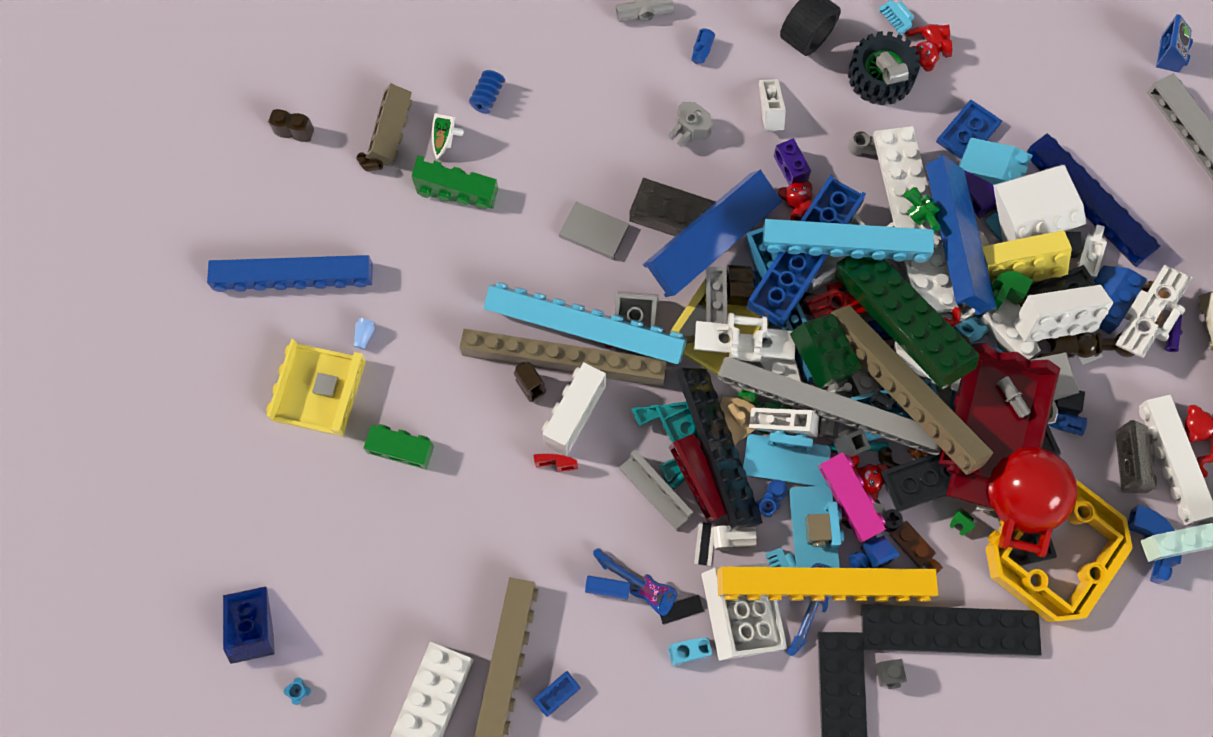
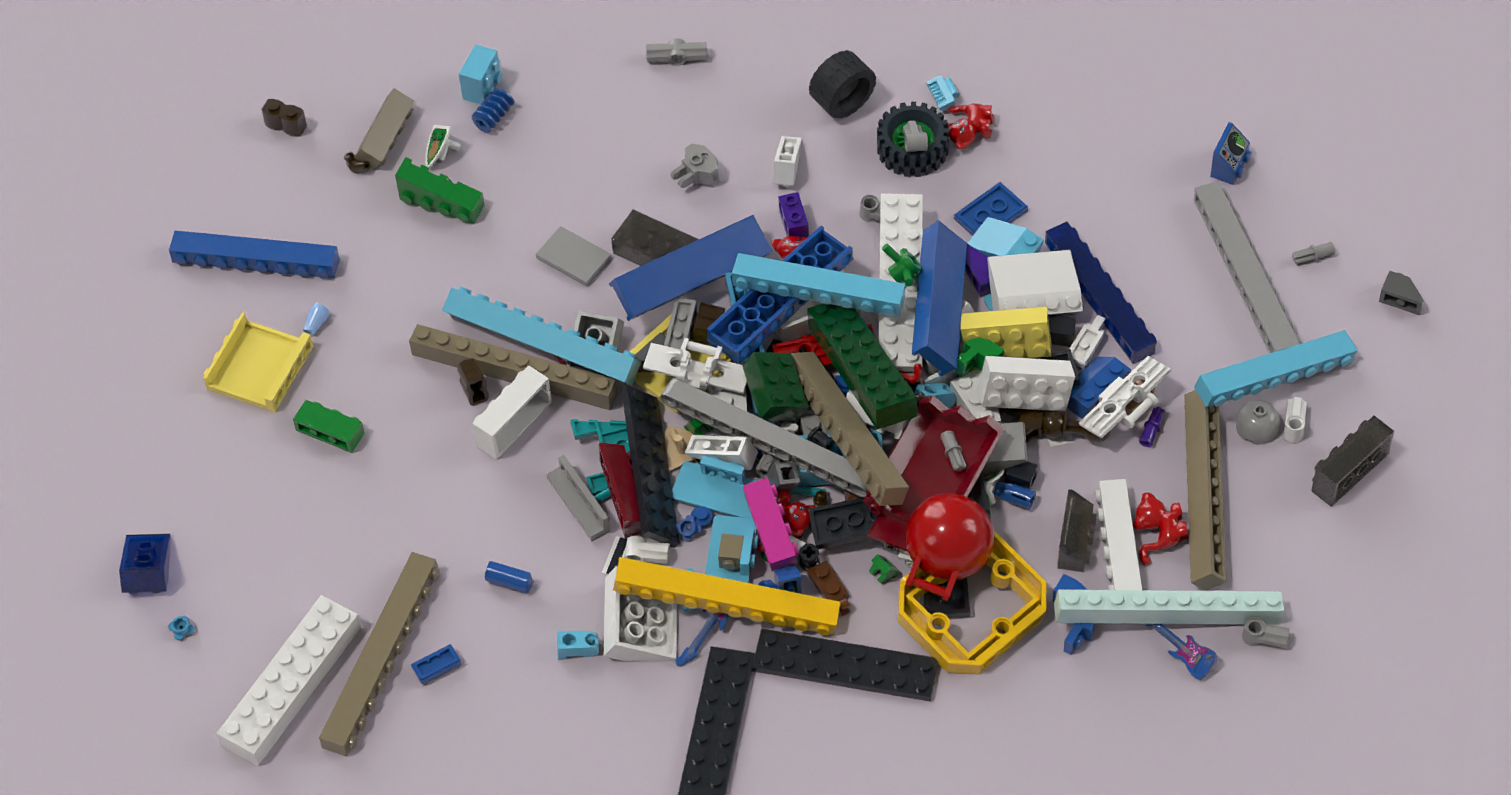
camera: 10 degrees right, 15 degrees down
(325, 385) = (267, 361): light grey tile -> none
(468, 57) = (480, 74): none -> medium azure brick
(562, 462) = (478, 457): red slope -> none
(658, 595) = (556, 590): blue piece -> none
(683, 609) = (578, 610): black sticker -> none
(702, 45) = (729, 95): blue hinge -> none
(891, 673) = (772, 689): dark grey brick -> none

